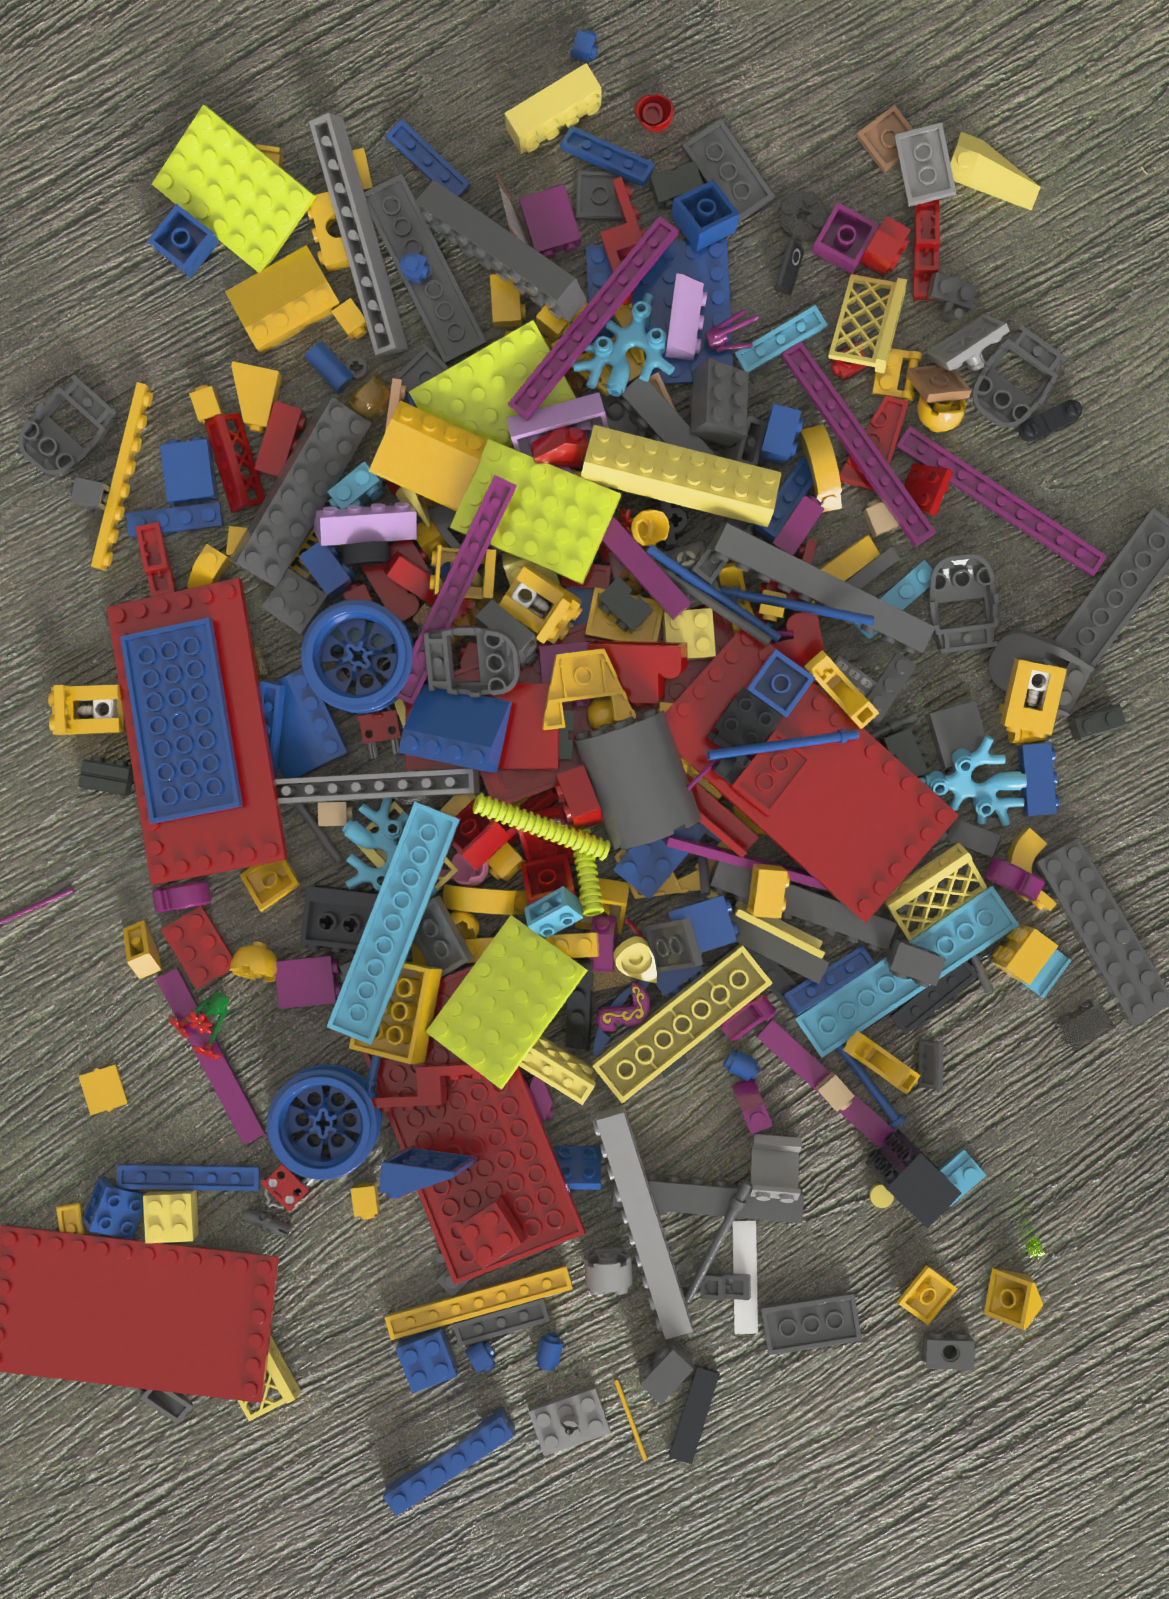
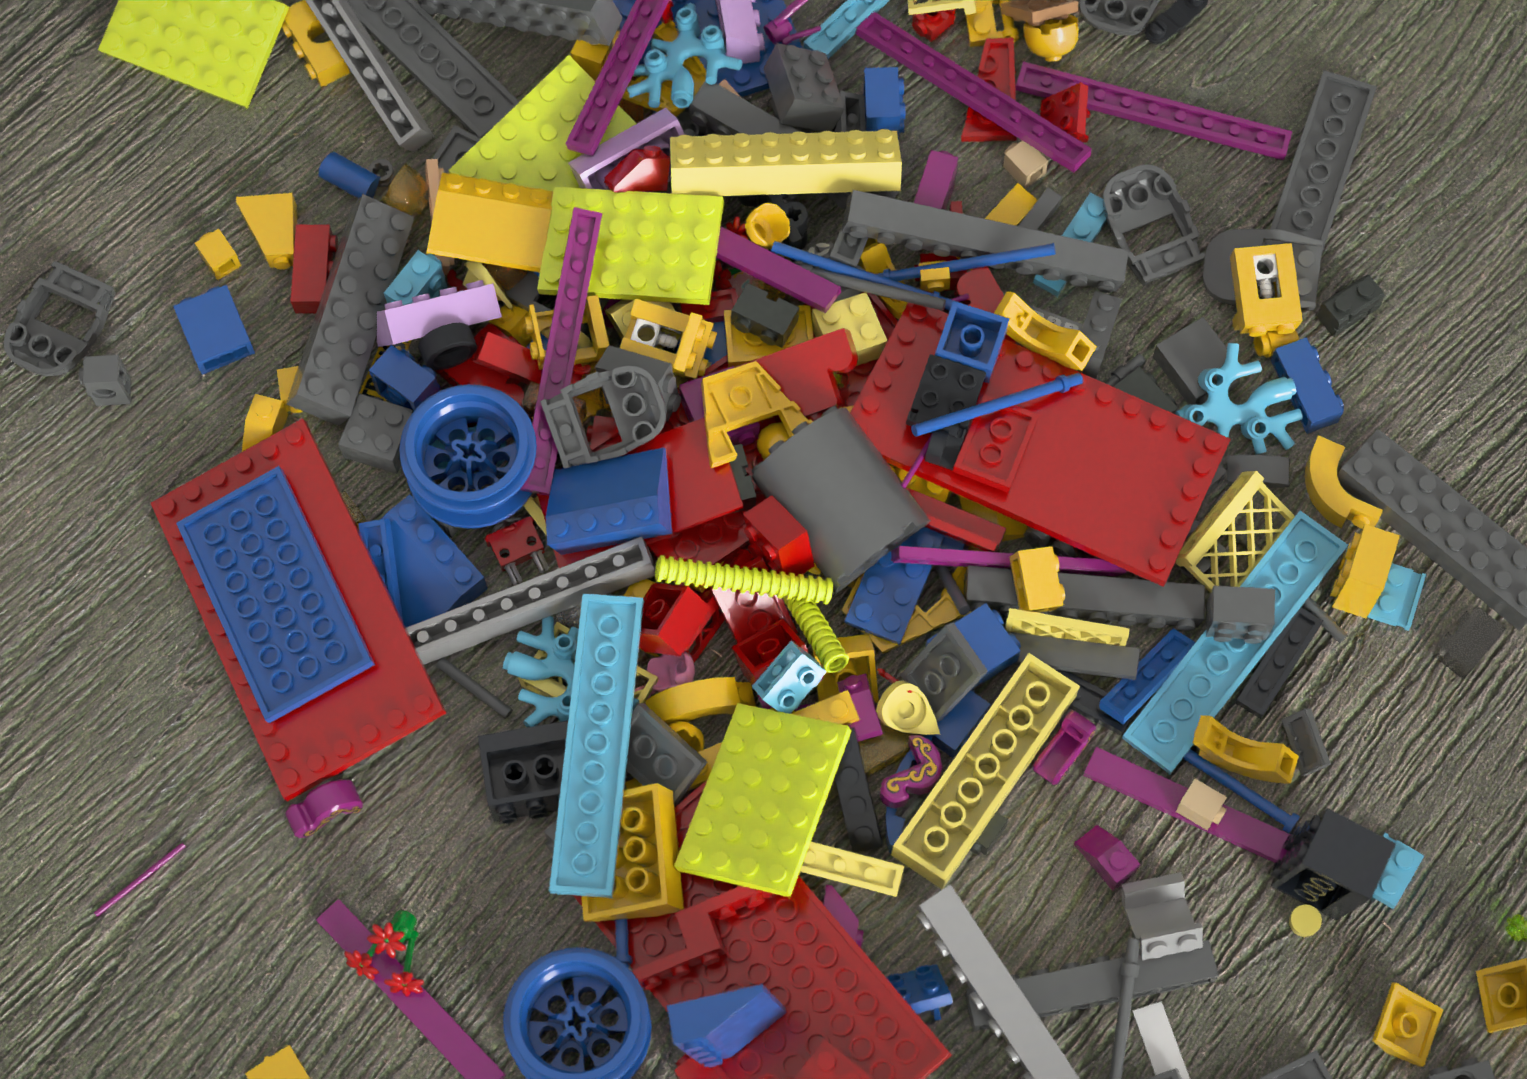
camera: 15 degrees left, 20 degrees down
(66, 710) = (156, 607): yellow brick -> none
(106, 777) = (196, 693): pearl dark grey brick -> none
(124, 468) = (136, 367): yellow plate -> none
(141, 950) = (290, 888): yellow slope -> none
(155, 559) = (196, 431): red slope -> none
(178, 518) = (209, 387): blue plate -> none
(183, 241) = (149, 93): blue brick -> none
(198, 946) = (361, 867): red plate -> none
(229, 461) = (258, 305): red fence -> none
(254, 962) = (437, 861): yellow cylinder -> none
(269, 882) = (428, 758): yellow slope -> none
(283, 300) = (279, 125): yellow slope -> none
(307, 981) = (508, 865): magenta brick -> none
(334, 813) = (487, 657): tan brick -> none
(350, 319) = (360, 123): yellow brick -> none
(414, 267) = (419, 48): blue plate -> none
(505, 862) = (712, 653): yellow brick -> none
(506, 304) = (530, 57): yellow brick -> none
(741, 1065) = (1077, 810): blue brick -> none
(788, 499) = (914, 162): blue plate -> none
(823, 466) = (944, 125): yellow arch -> none
(1014, 878) = (1322, 493): magenta animal -> none

